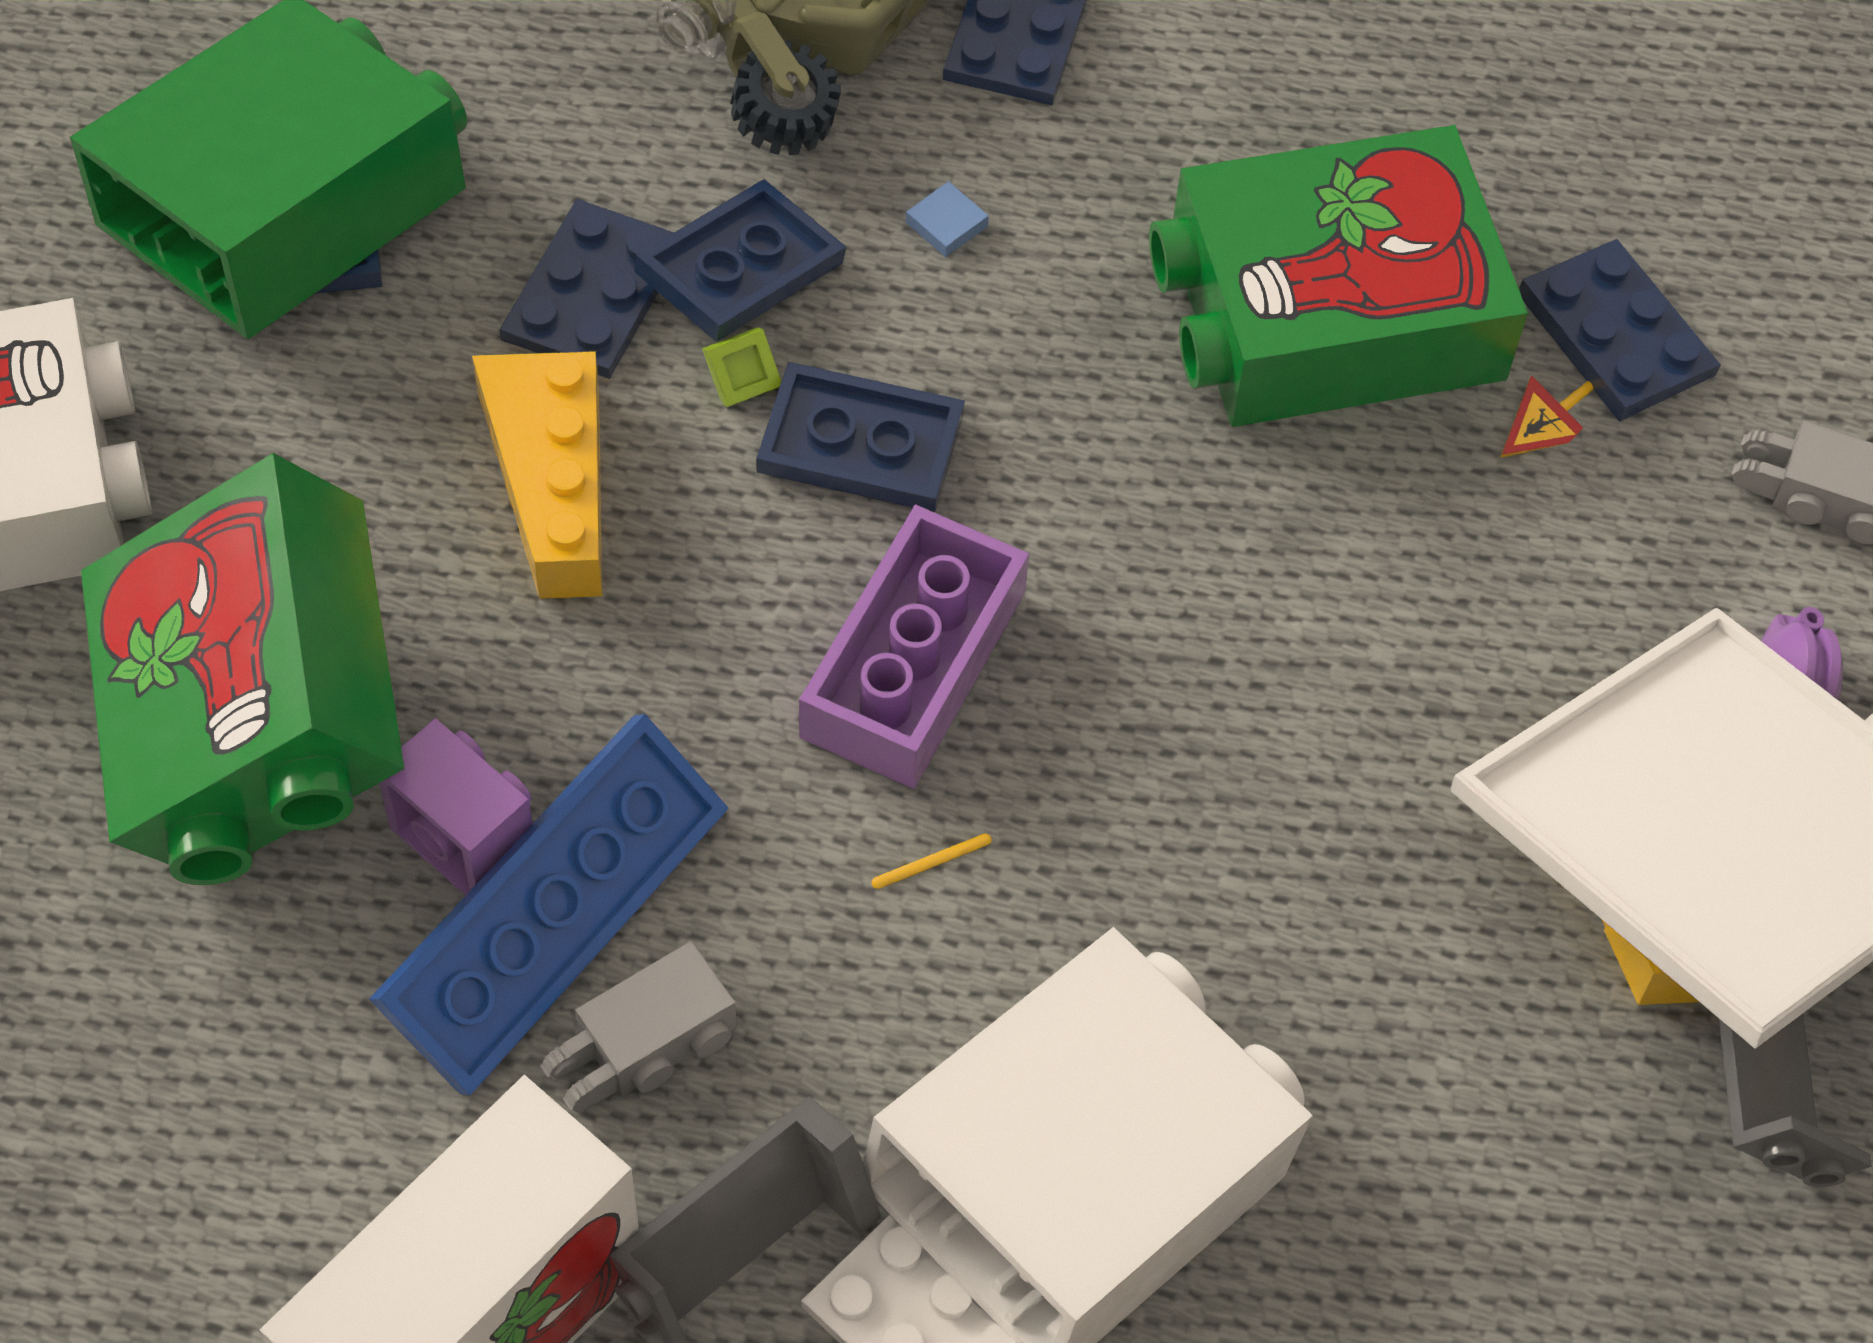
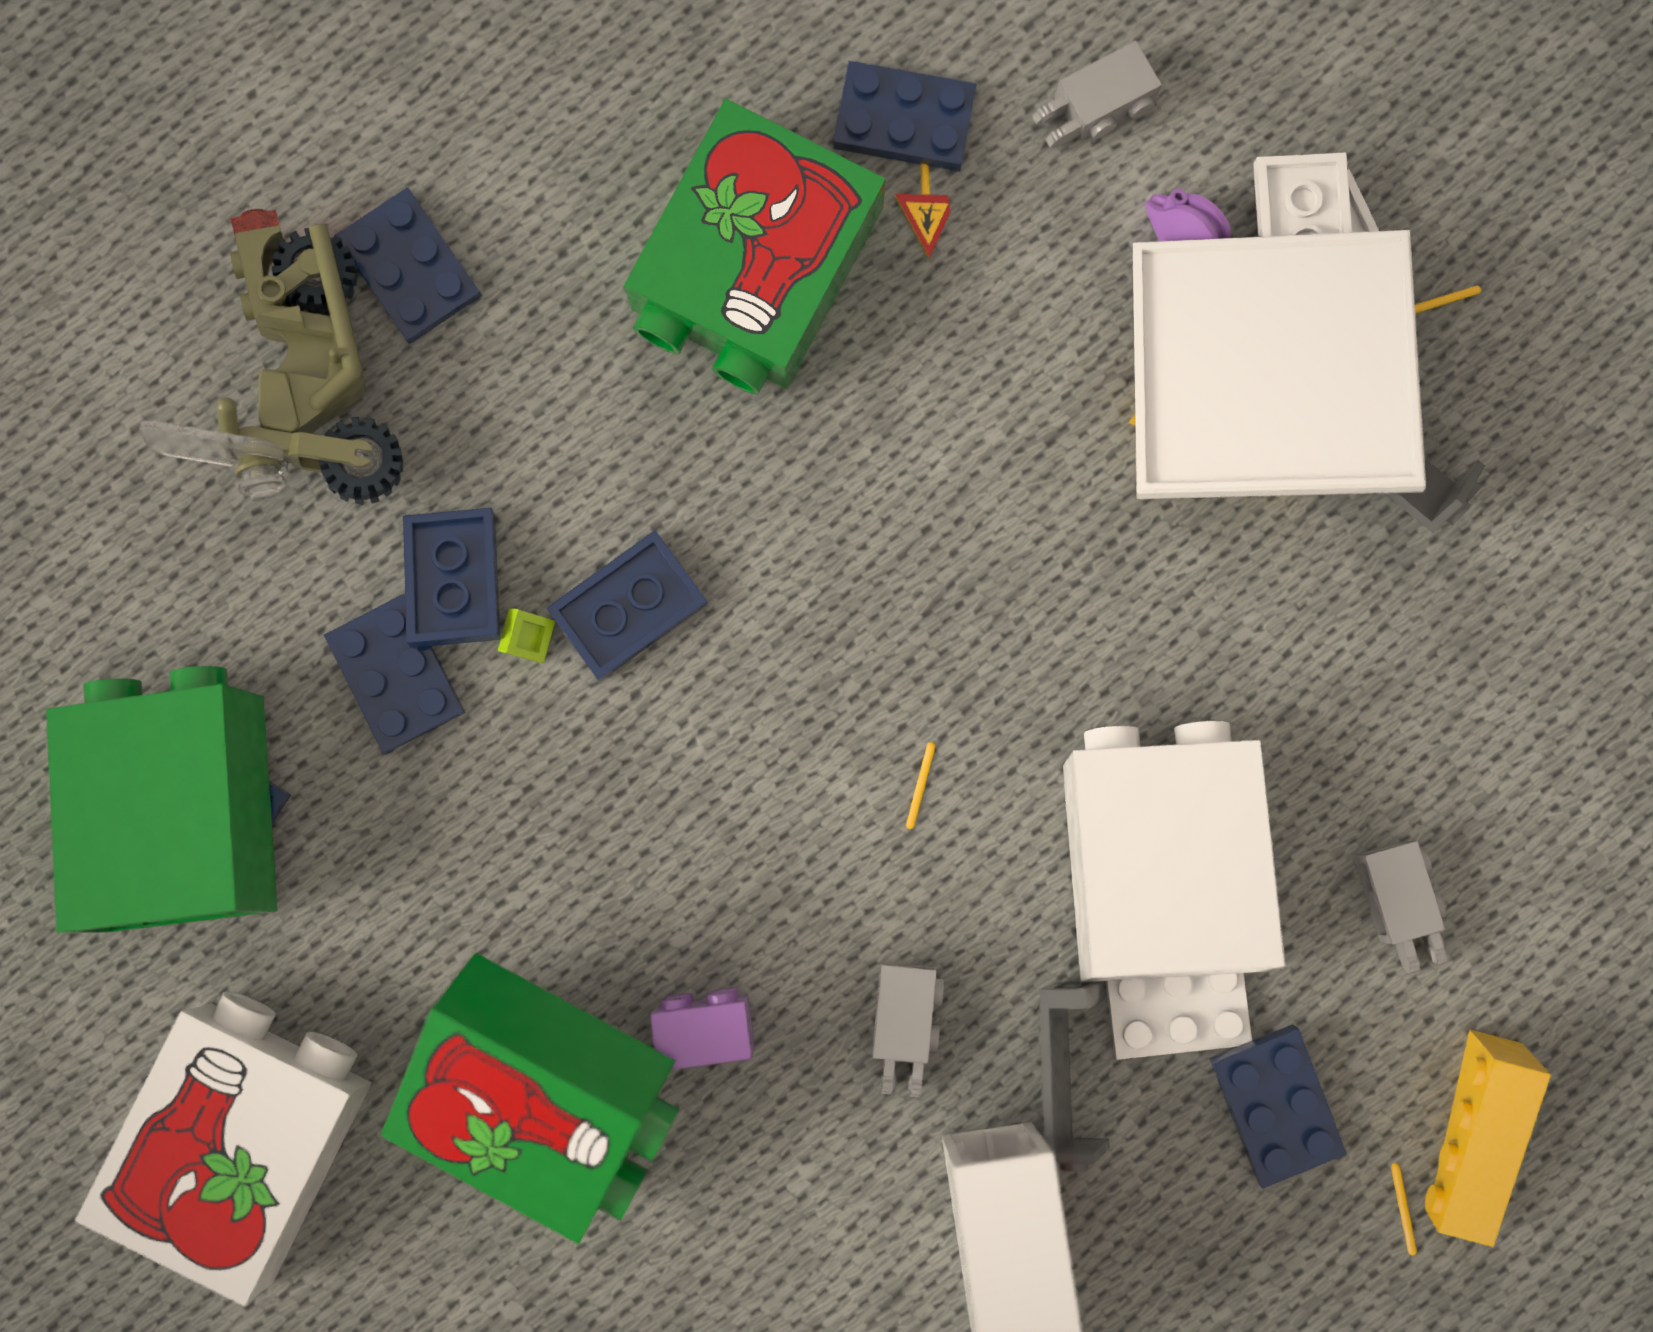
camera: 45 degrees left, 25 degrees up
(548, 448) = (498, 794): yellow wedge -> none
(549, 905) = (794, 1018): blue plate -> none
(913, 646) = (795, 693): medium lavender brick -> none
(947, 219) = (515, 429): medium blue tile -> none

